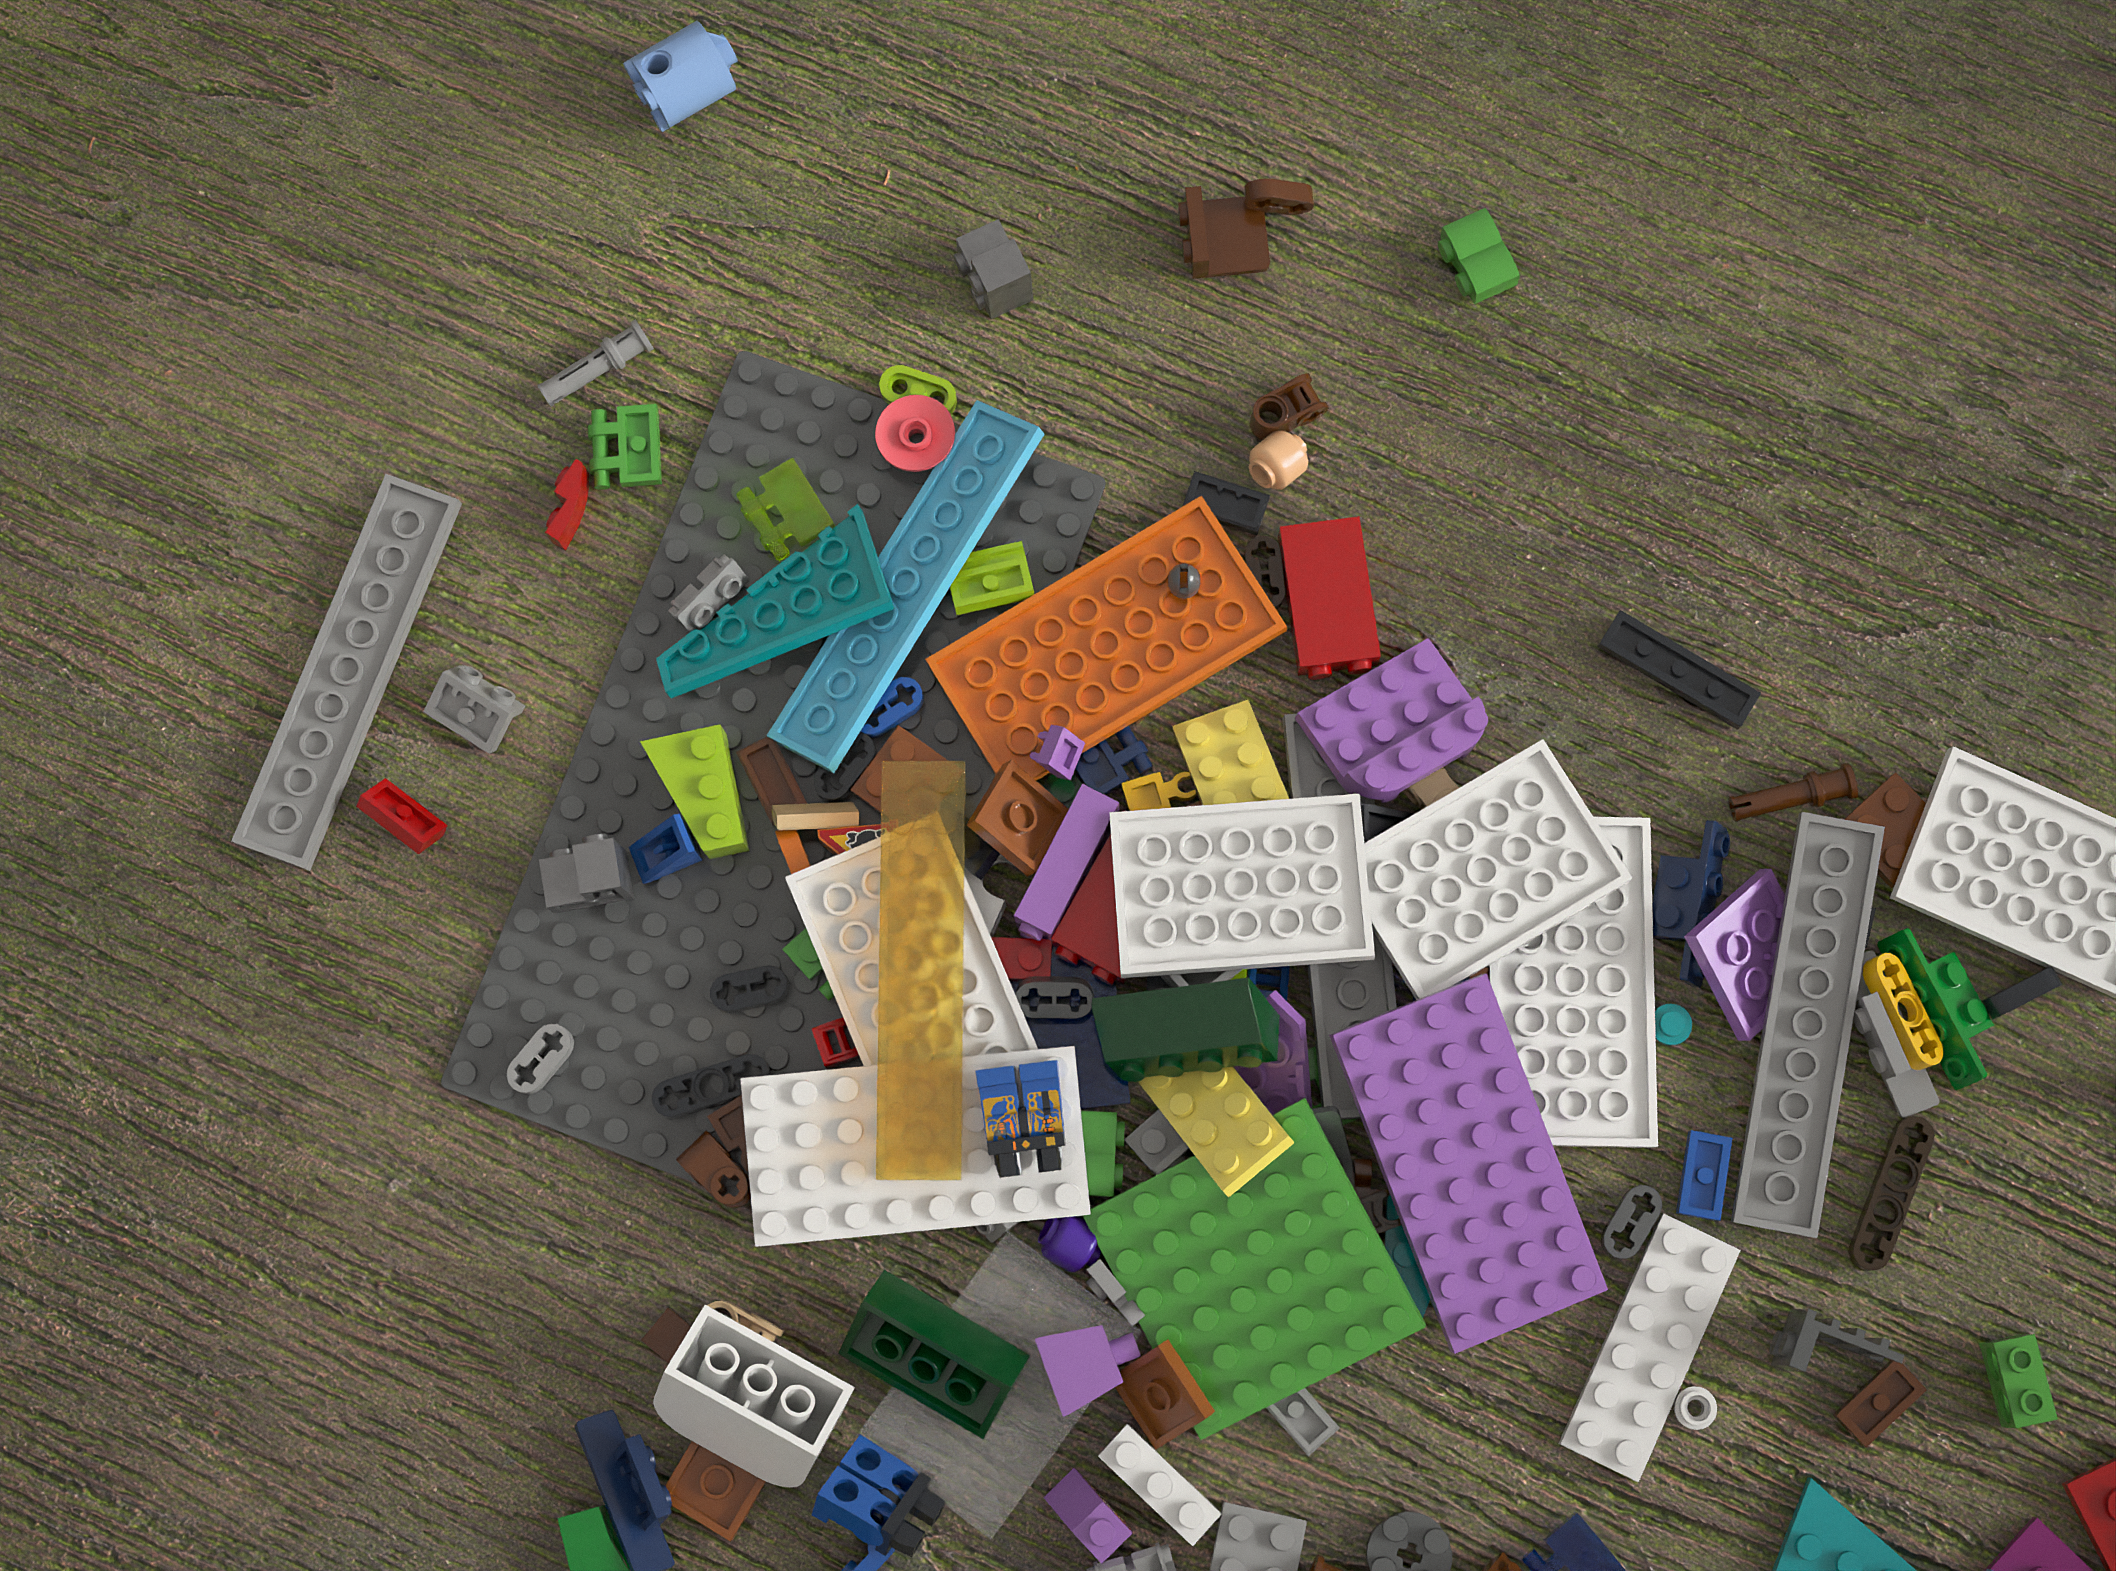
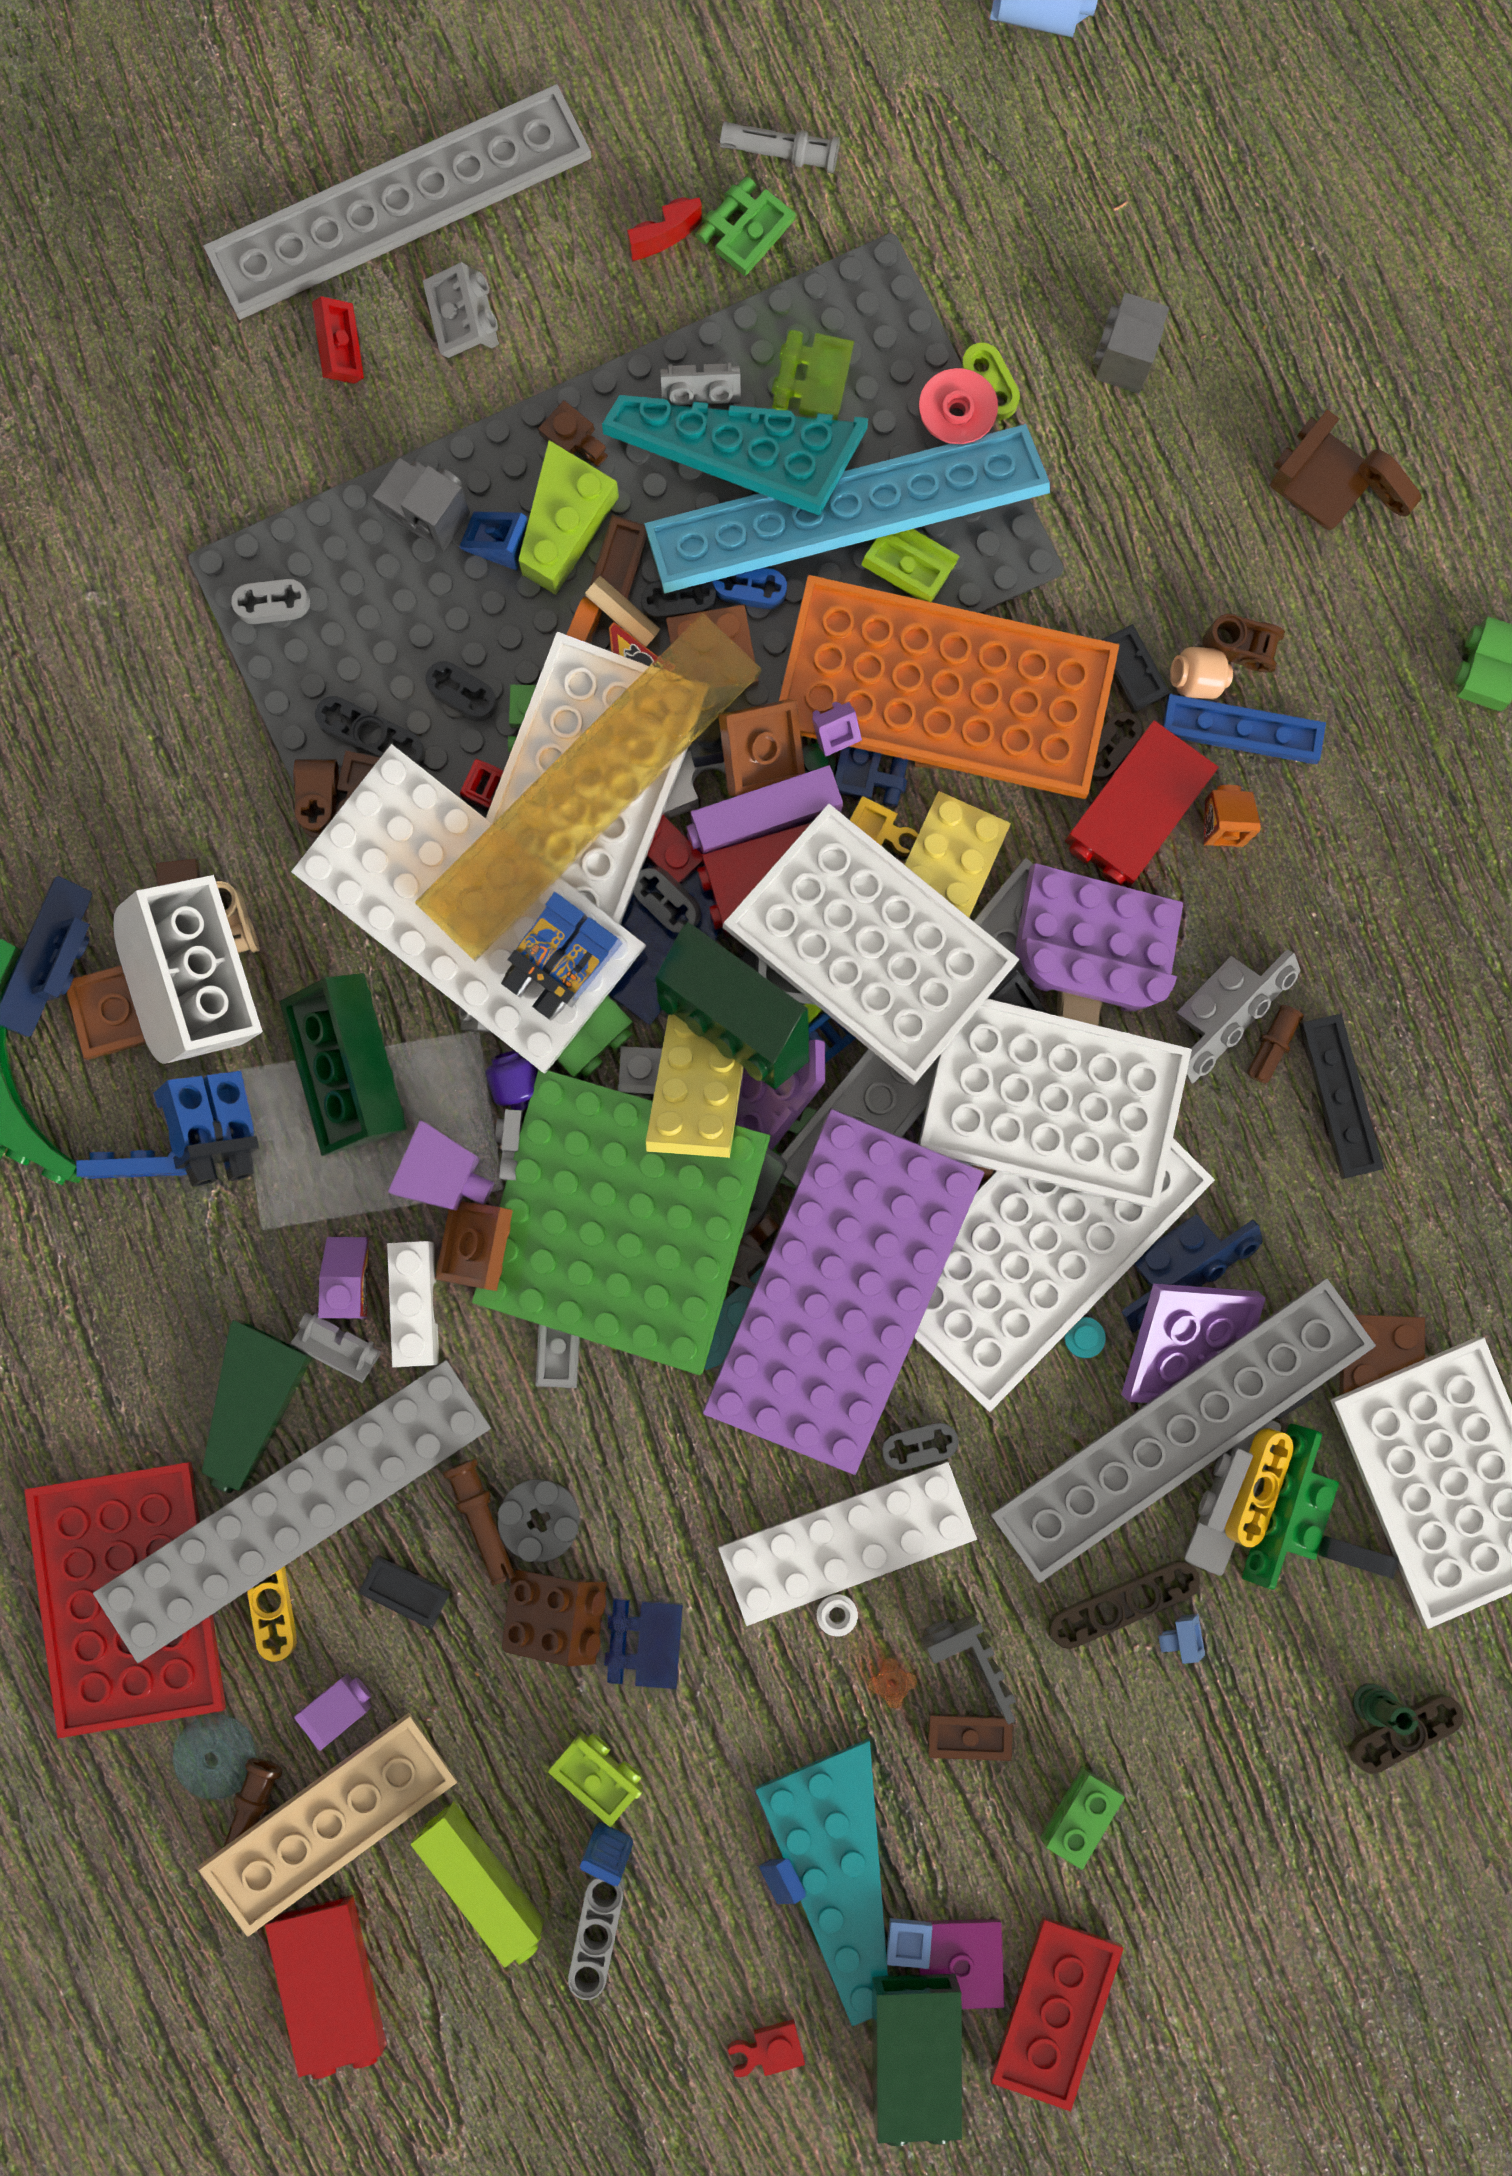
camera: 30 degrees right, 5 degrees up
(645, 720) = (573, 433): none -> reddish brown plate
(1193, 580) = (1054, 696): dark grey hinge -> none
(1348, 471) = (1244, 729): none -> blue plate
(1402, 543) = (1230, 817): none -> orange slope
(1534, 679) = (1230, 1004): none -> light grey bracket
(1594, 677) = (1274, 1044): none -> reddish brown axle
(1704, 1175) = (1003, 1463): blue plate -> none
(1793, 1427) = (904, 1682): none -> clear orange plate
(1812, 789) = (1353, 1272): reddish brown pin -> none
(1960, 1174) = (1185, 1638): none -> medium blue tile

